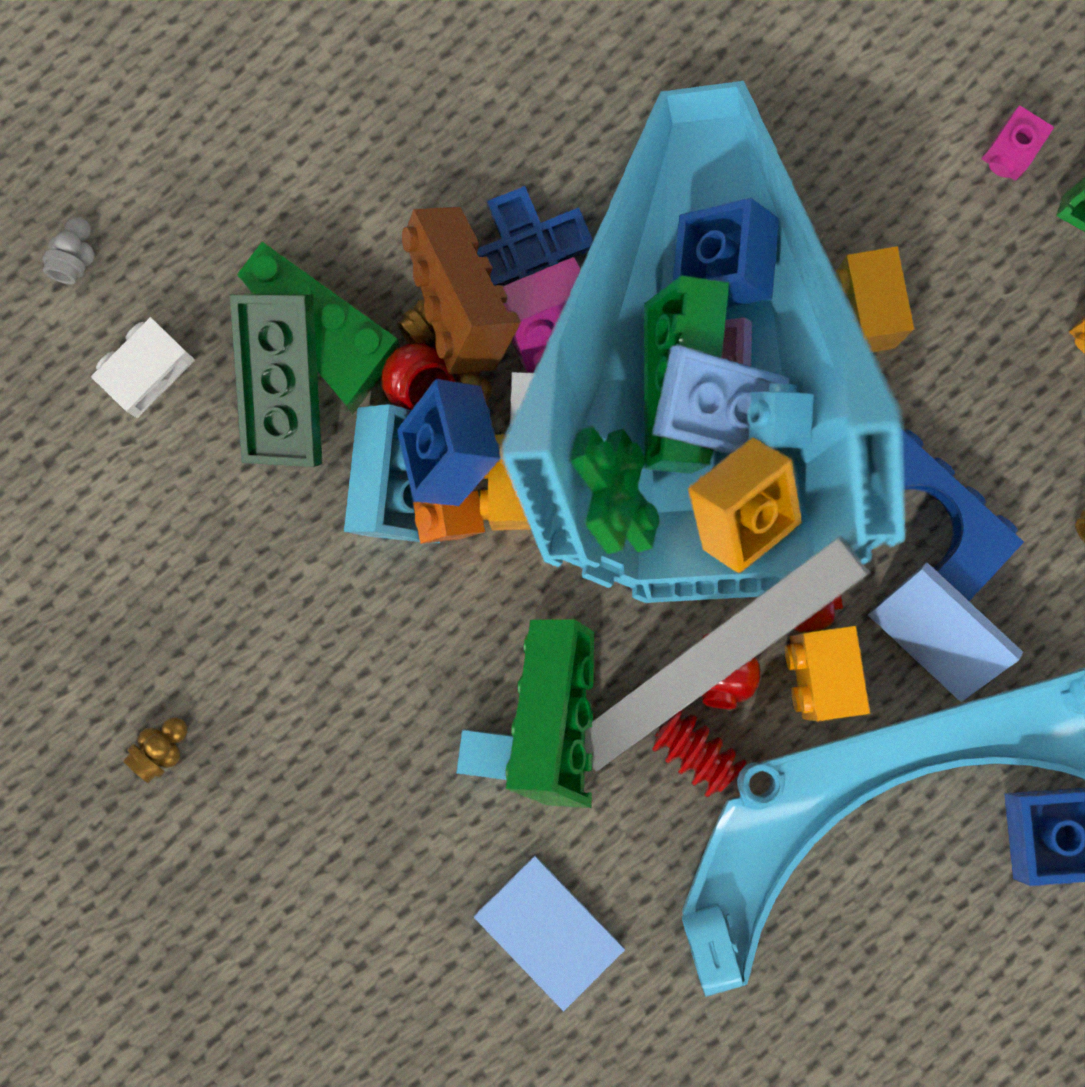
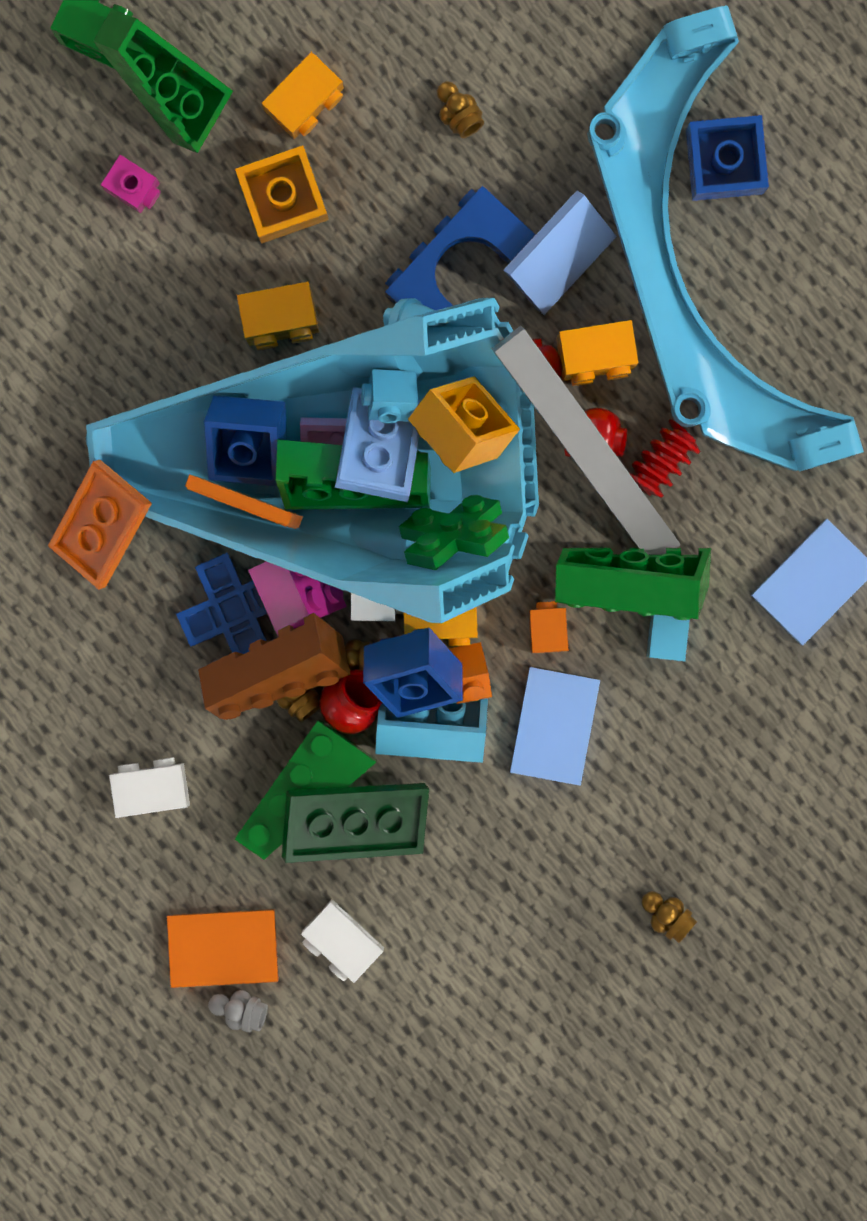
camera: 85 degrees left, 5 degrees up
(142, 235) = (222, 948): none -> orange tile
(325, 153) = (149, 789): none -> white brick
(385, 619) = (554, 726): none -> light blue tile
(499, 611) = (548, 628): none -> orange brick
(629, 97) = (99, 524): none -> orange tile
(653, 248) = (243, 502): none -> orange tile
(1009, 310) = (282, 194): none -> light orange brick

